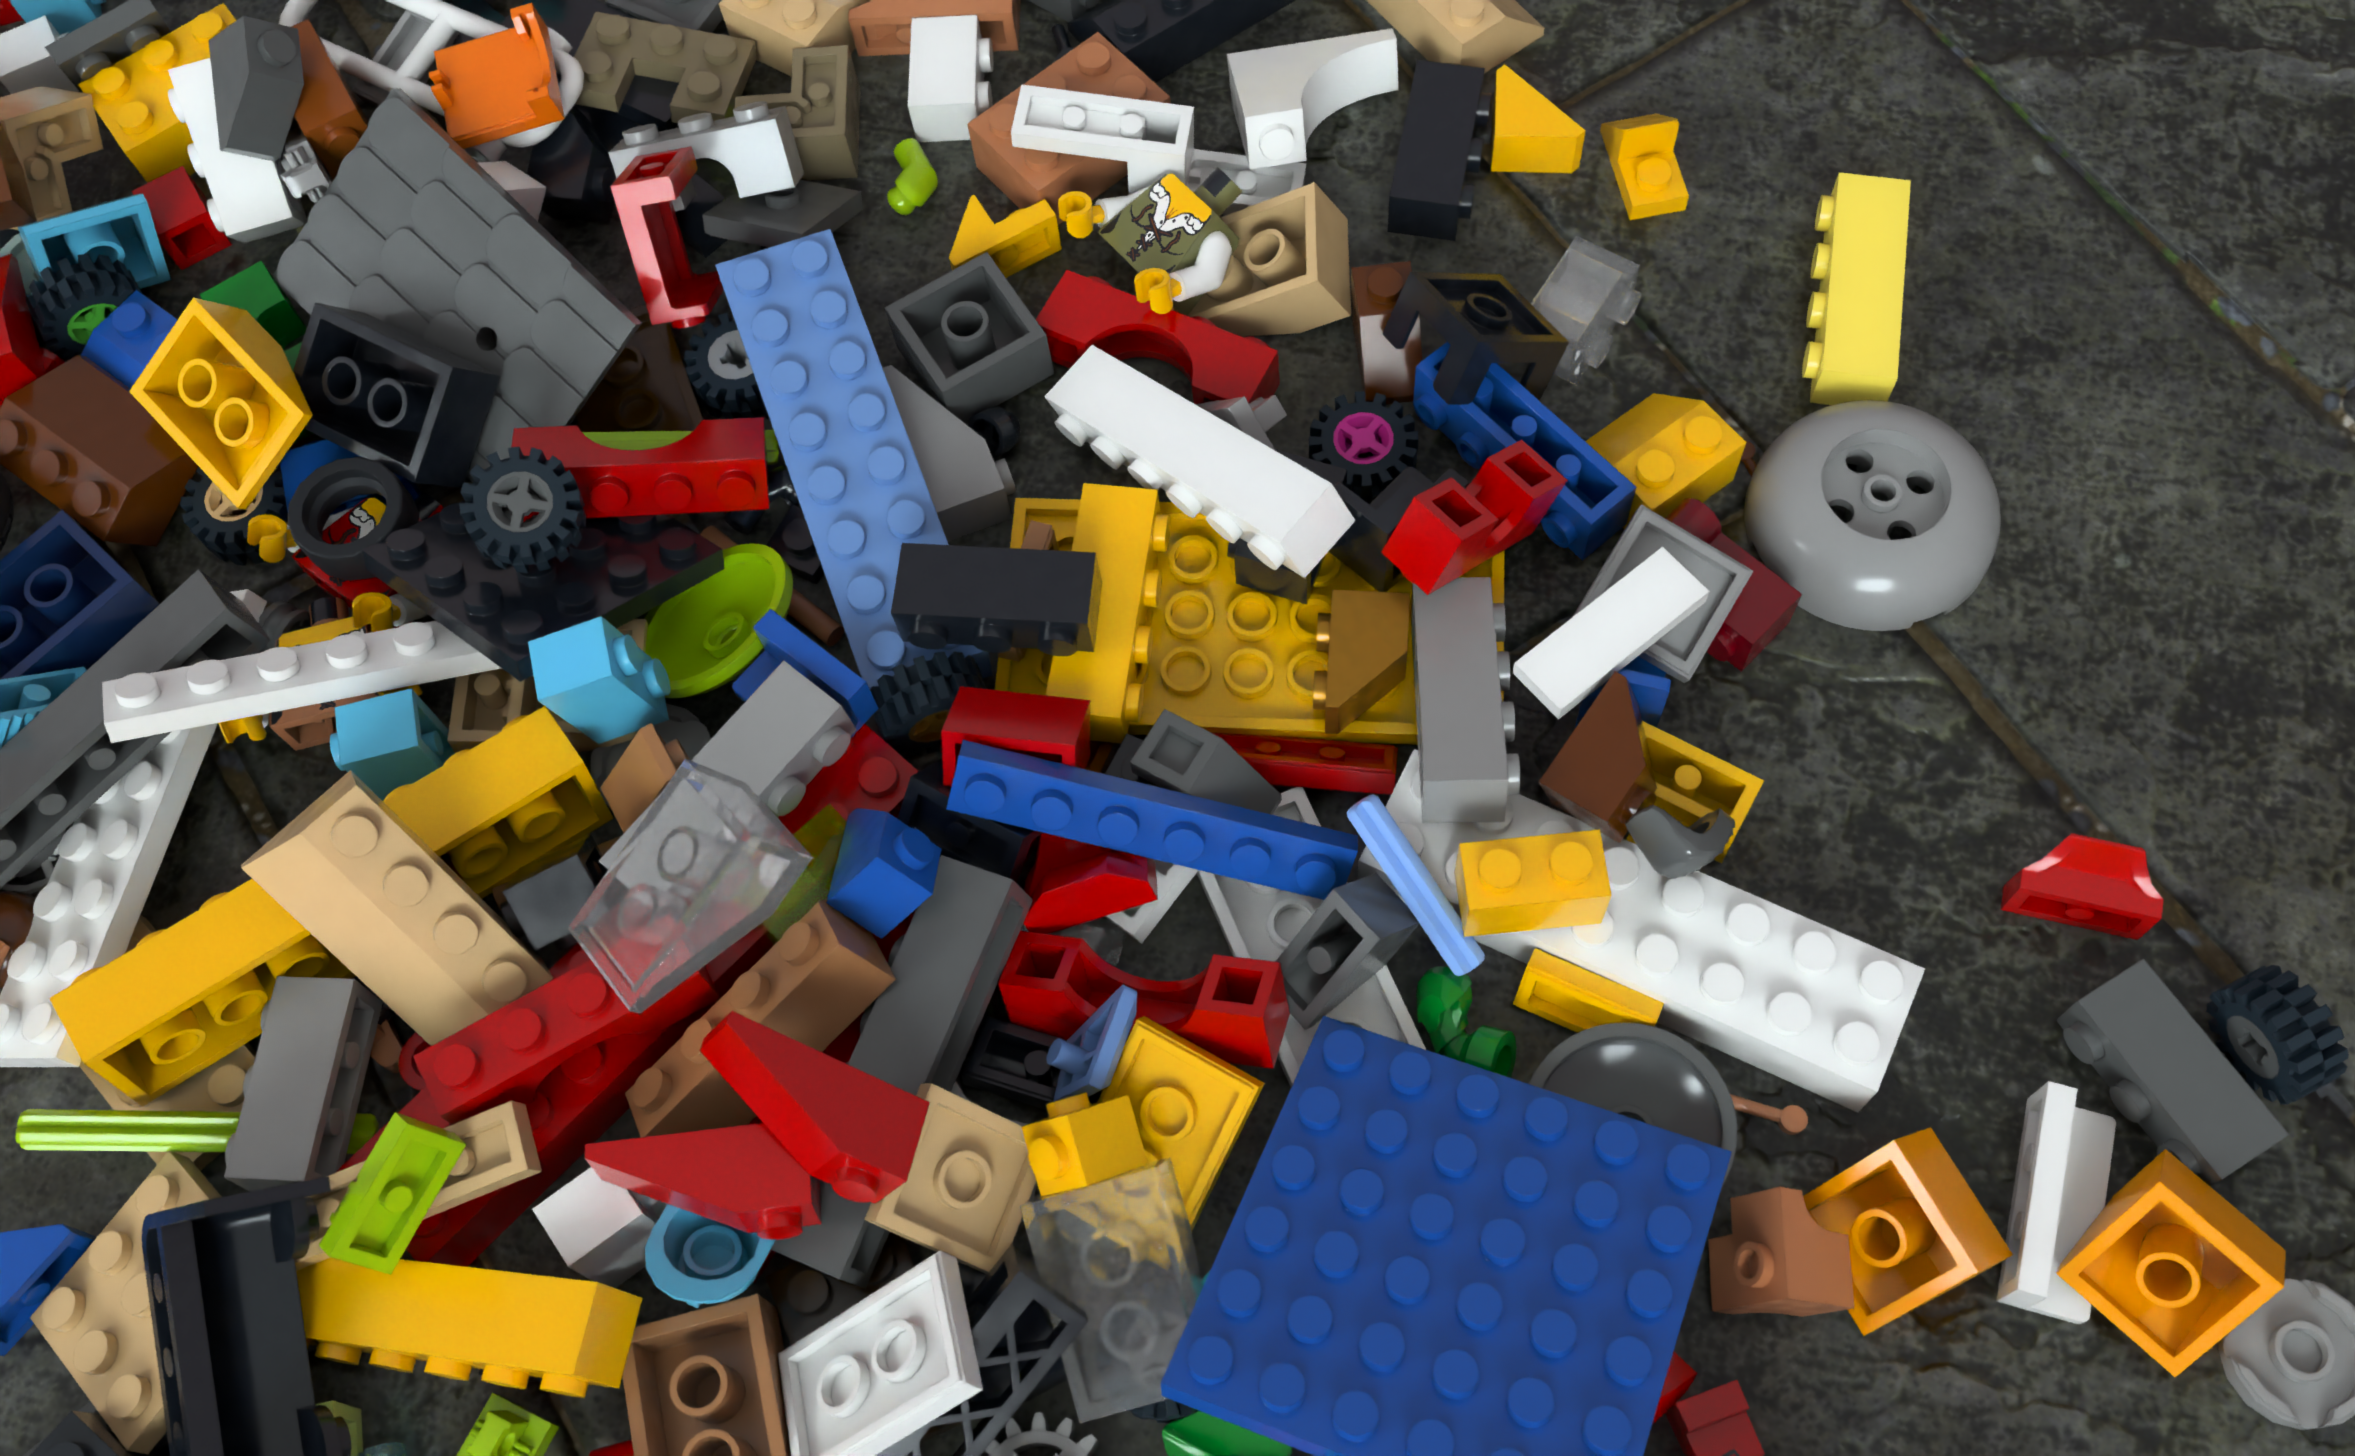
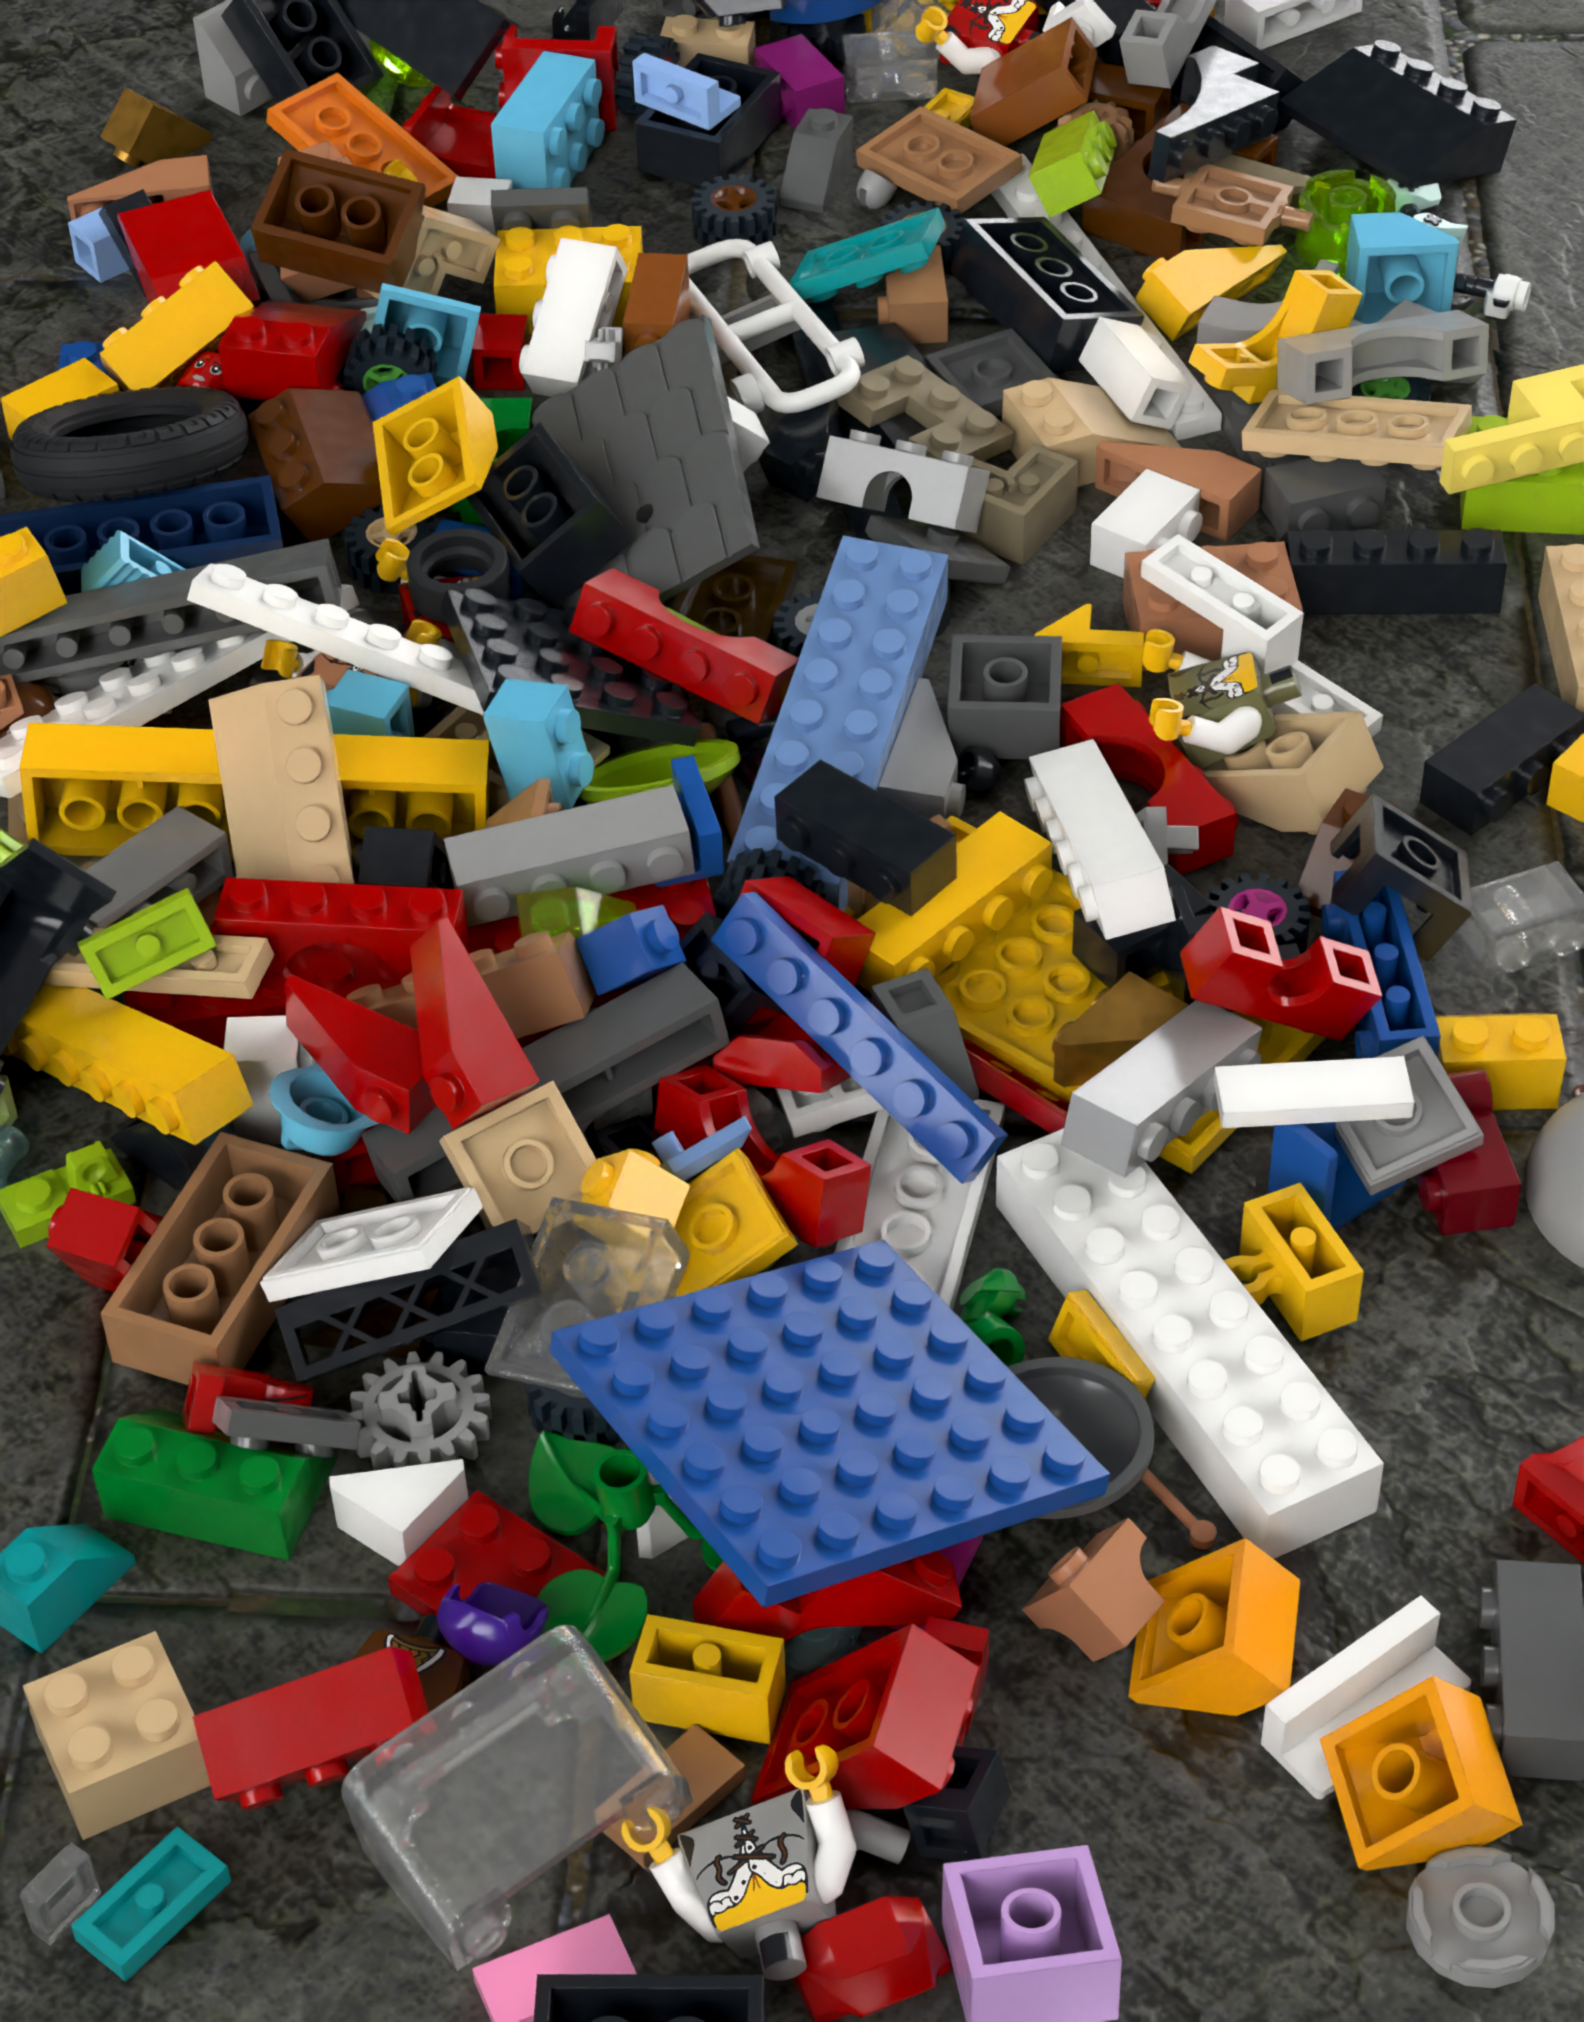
camera: 30 degrees right, 20 degrees down
(255, 86) = (612, 275): dark grey slope -> none
(498, 82) = (787, 352): orange piece -> none
(522, 487) = (572, 589): black wheel -> none
(655, 240) = (822, 507): red panel -> none
(687, 885) = (491, 862): clear slope -> none
(915, 181) = (1062, 584): lime arm -> none
(1292, 88) = (1407, 658): white arch -> none
(1343, 946) = (937, 1200): dark grey slope -> none
(1415, 884) = (1021, 1184): light blue axle -> none
(1532, 883) = (1104, 1215): yellow brick -> none
(1605, 764) = (1239, 1177): reddish brown slope -> none
(1679, 849) = (1245, 1263): dark grey hair -> none

